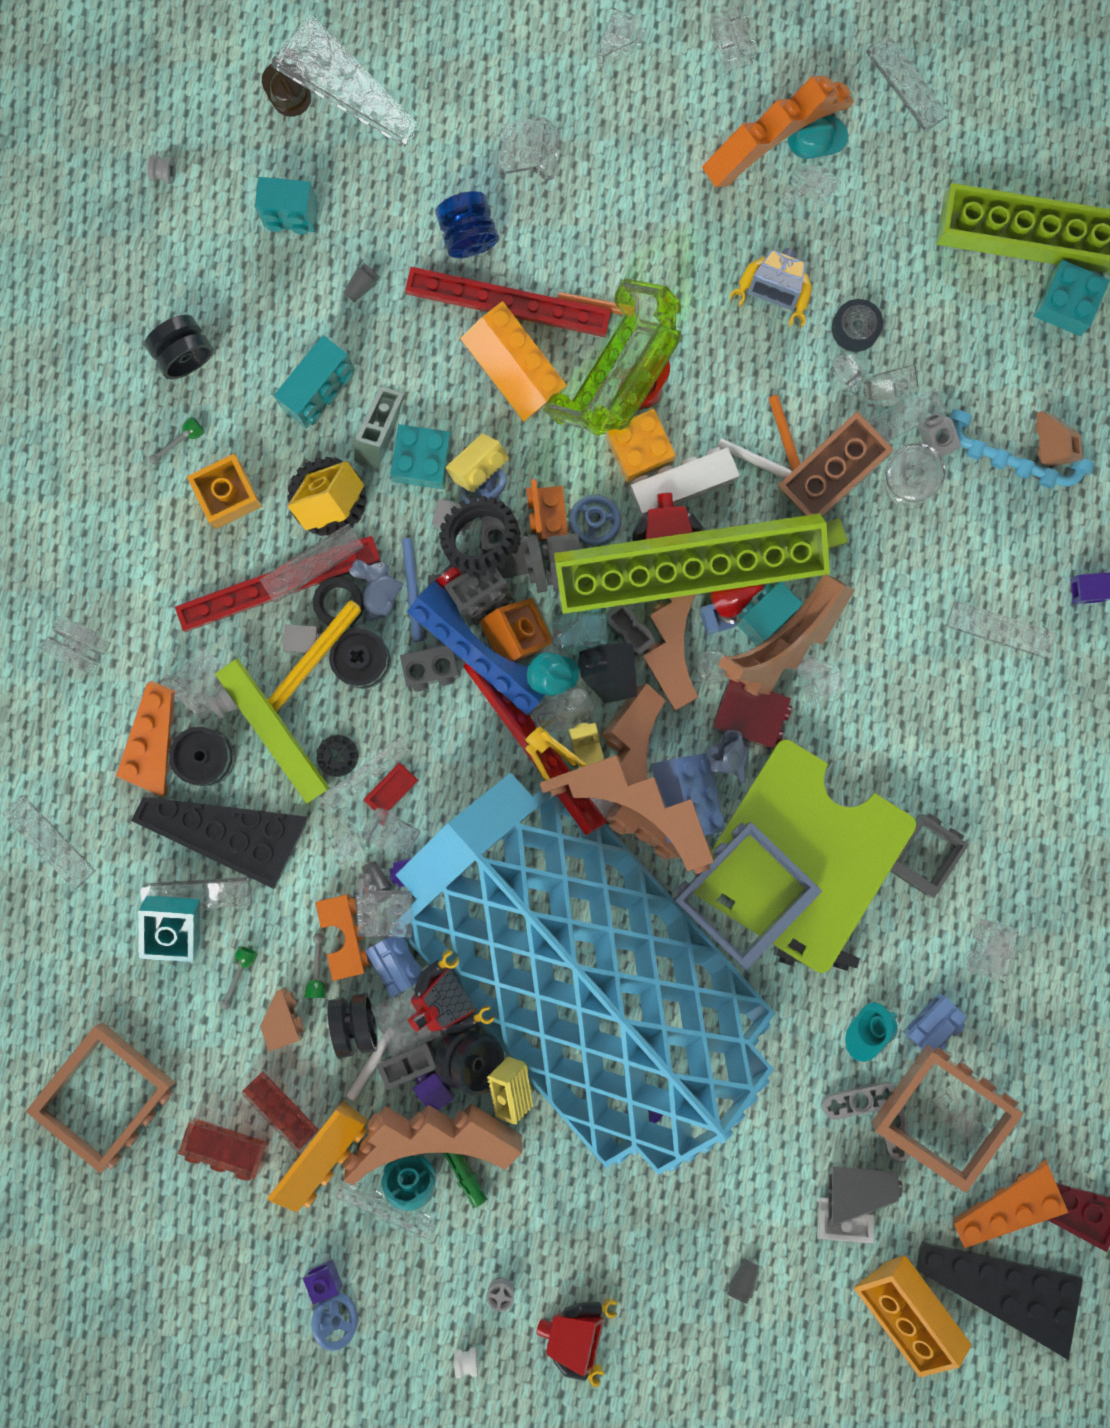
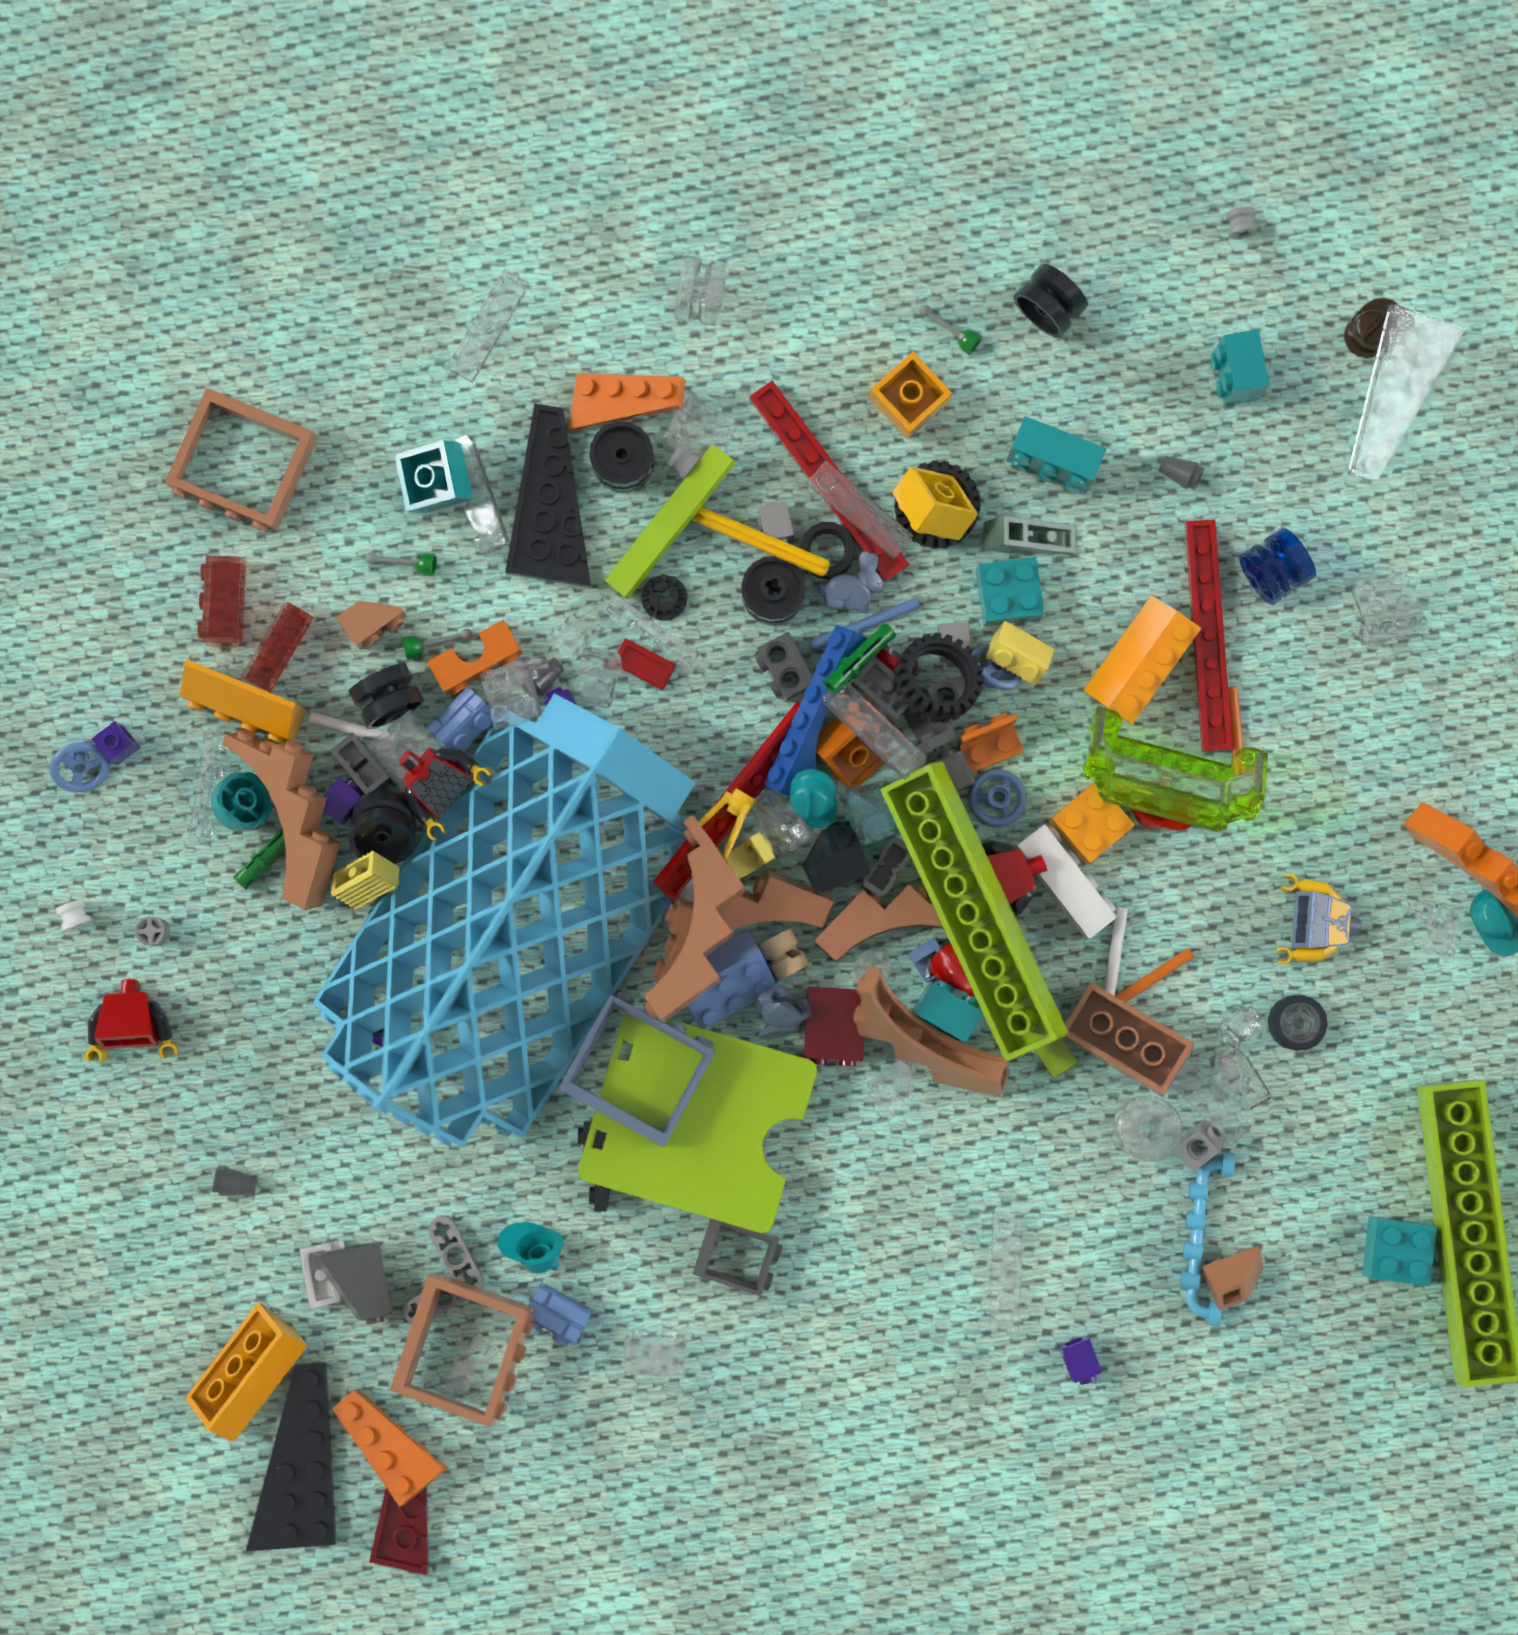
camera: 70 degrees right, 0 degrees up
(457, 622) = (838, 680): none -> green pin
(509, 603) = (875, 730): none -> clear plate
(679, 740) = (783, 955): none -> tan wheel

